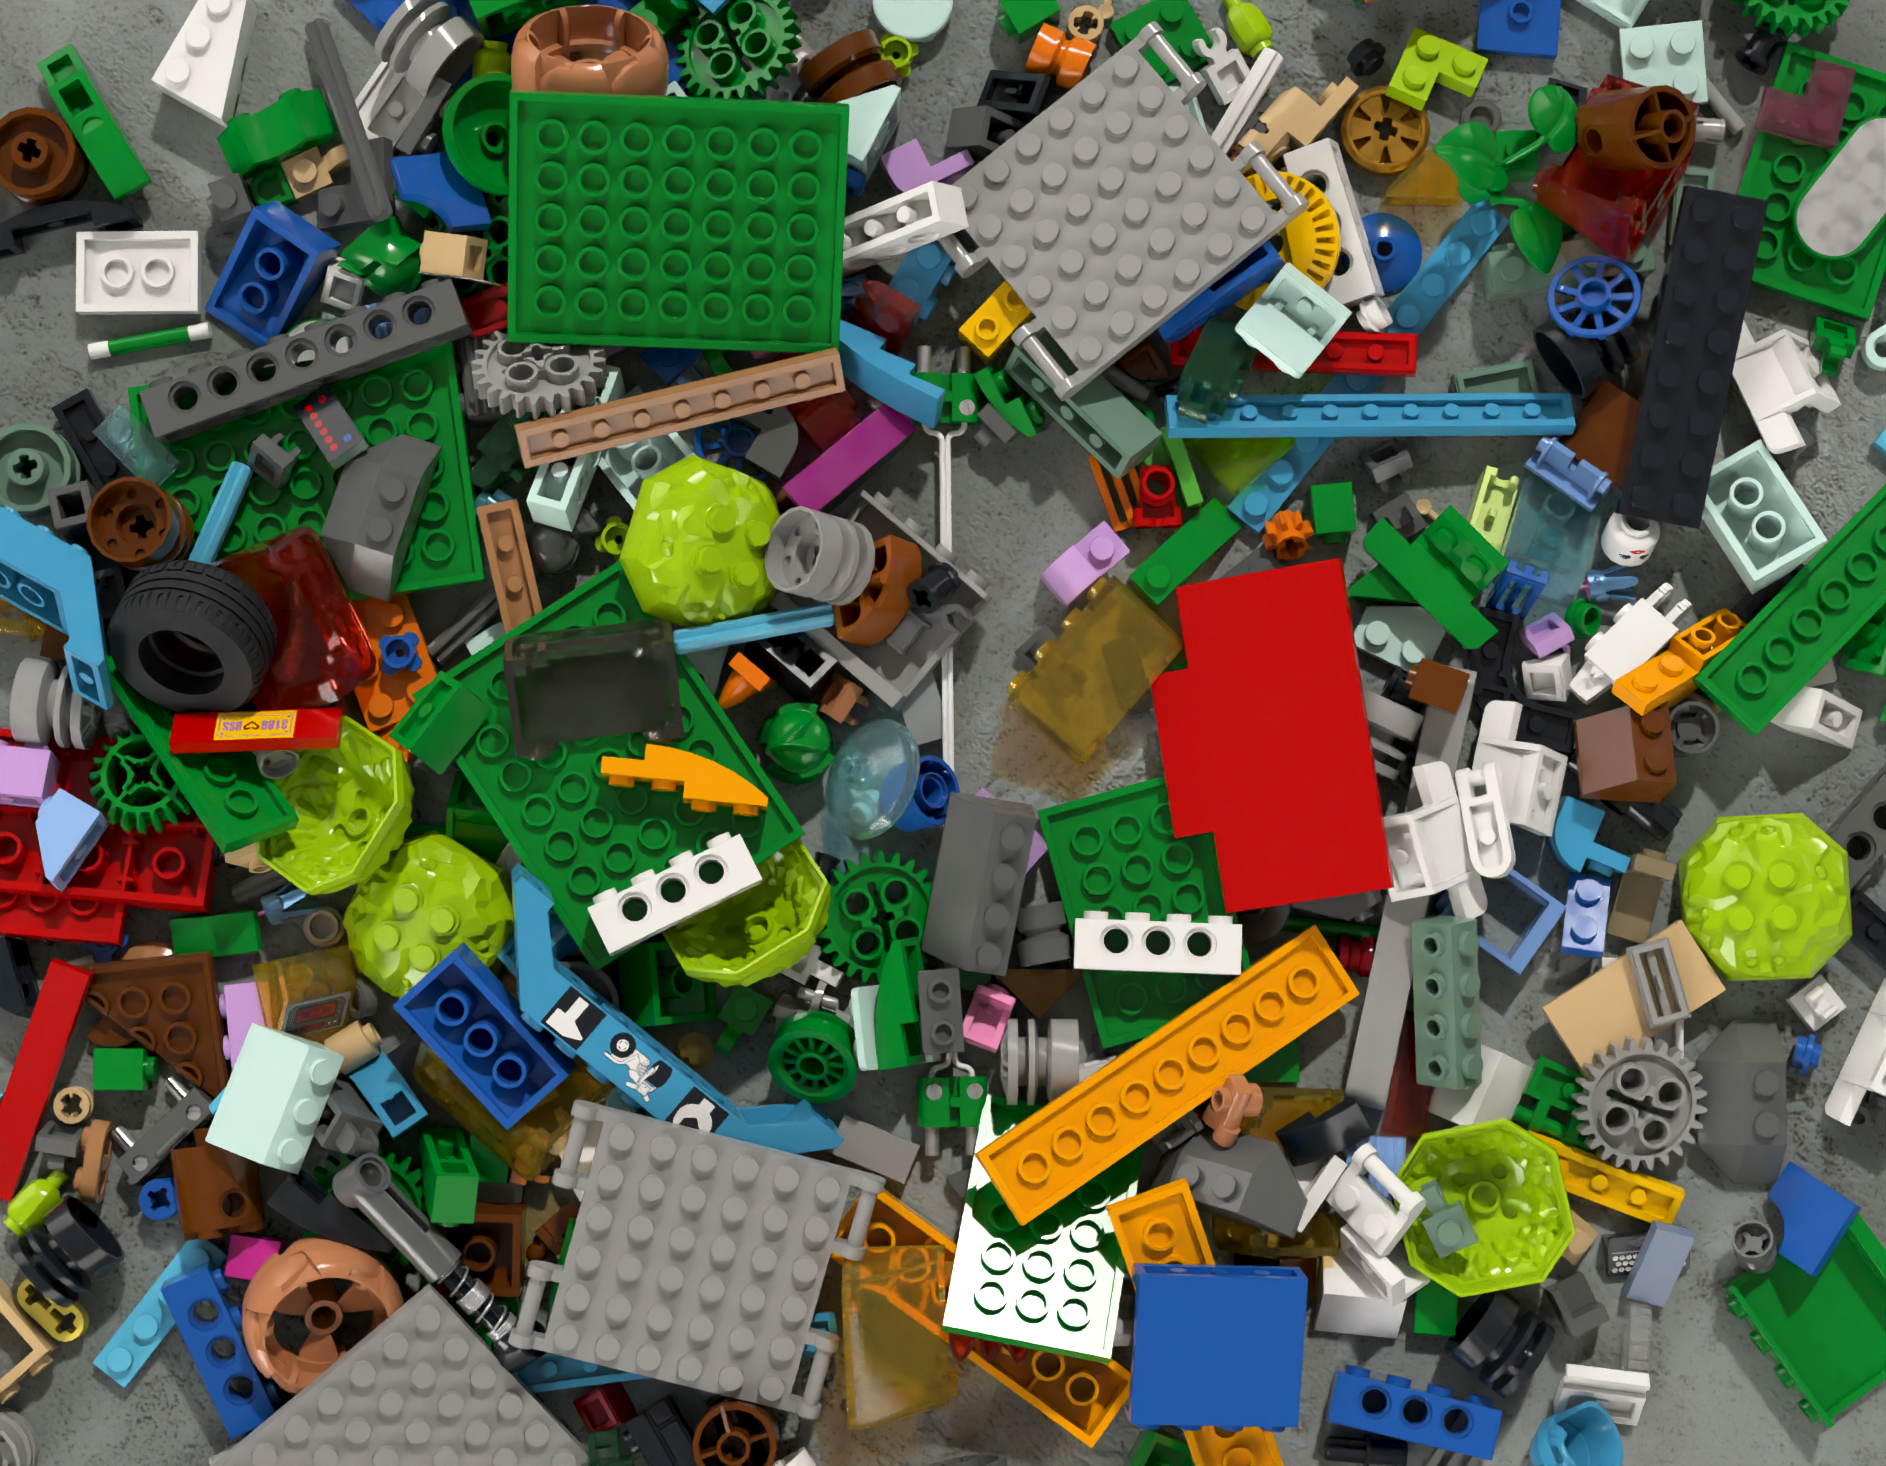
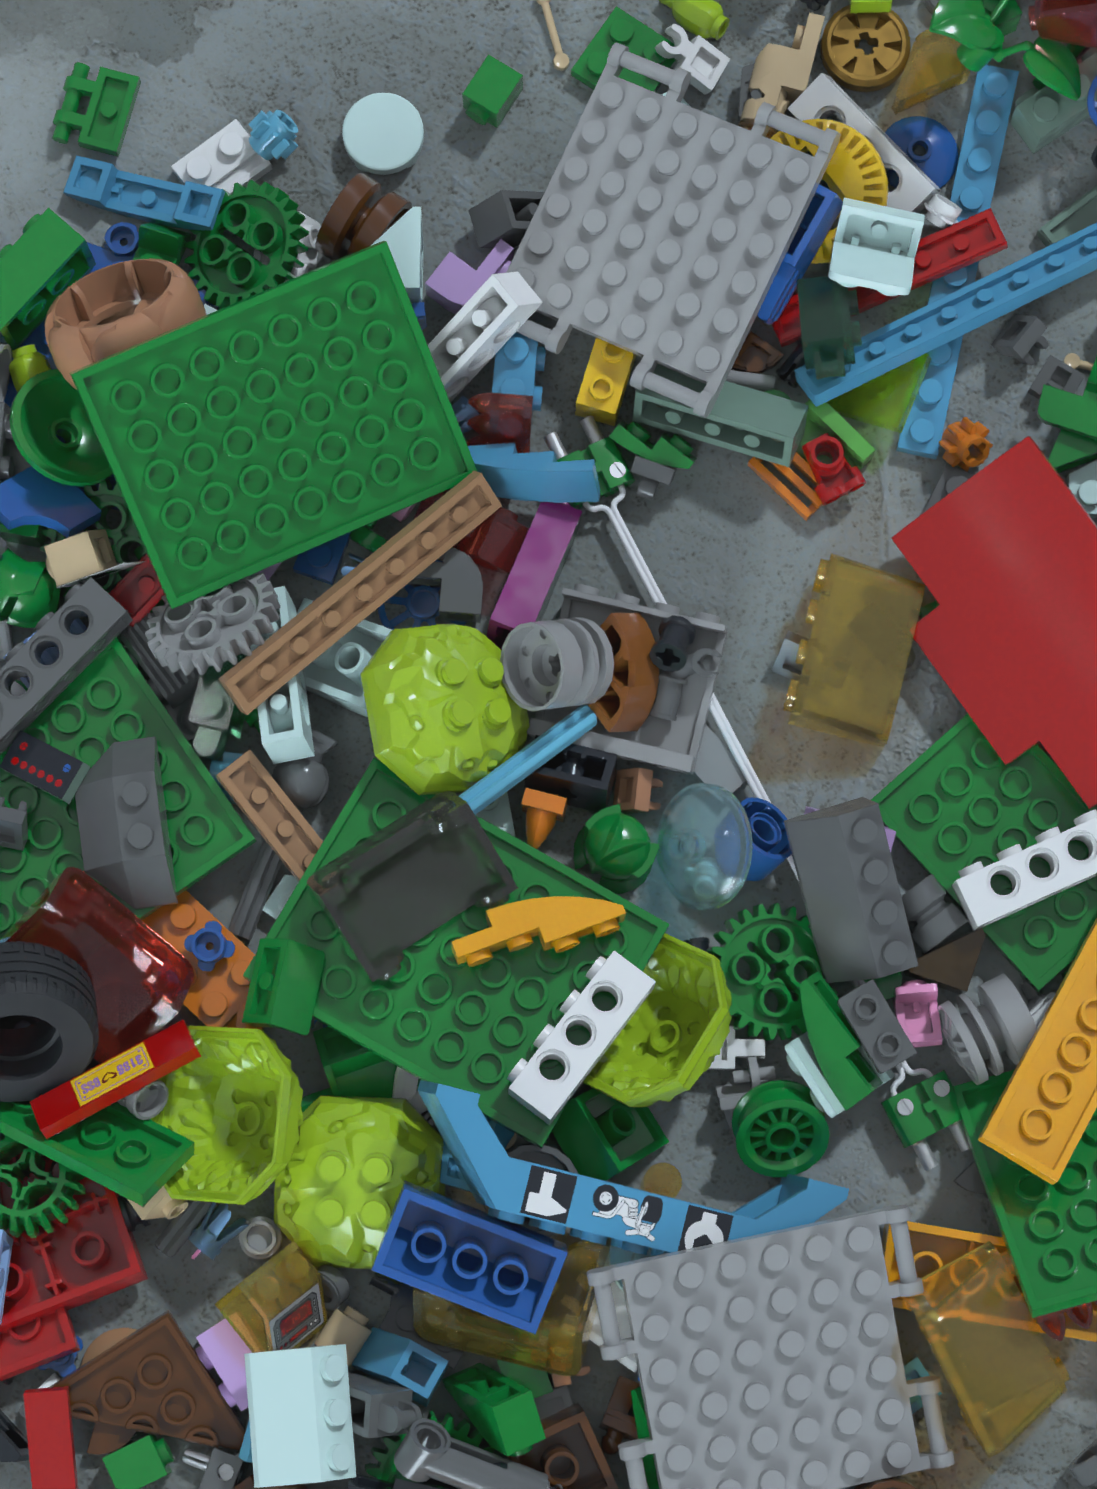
camera: 25 degrees left, 5 degrees down
(222, 932) = (168, 1289): green slope -> none
(606, 542) = (347, 754): lime plate -> none
(743, 1013) = (690, 1123): green plate -> none
(875, 1148) = (877, 1188): light grey tile -> none
(906, 50) = (397, 179): lime plate -> none
(1016, 93) = (519, 169): black slope -> none
(1059, 57) = (543, 119): orange wheel -> none
(1077, 15) = (556, 70): tan bush -> none
(1084, 564) = (796, 559): lavender brick -> none
(1183, 553) = (880, 506): green slope -> none
(1247, 99) = (730, 71): white axle -> none
(1331, 512) = (994, 404): green brick -> none

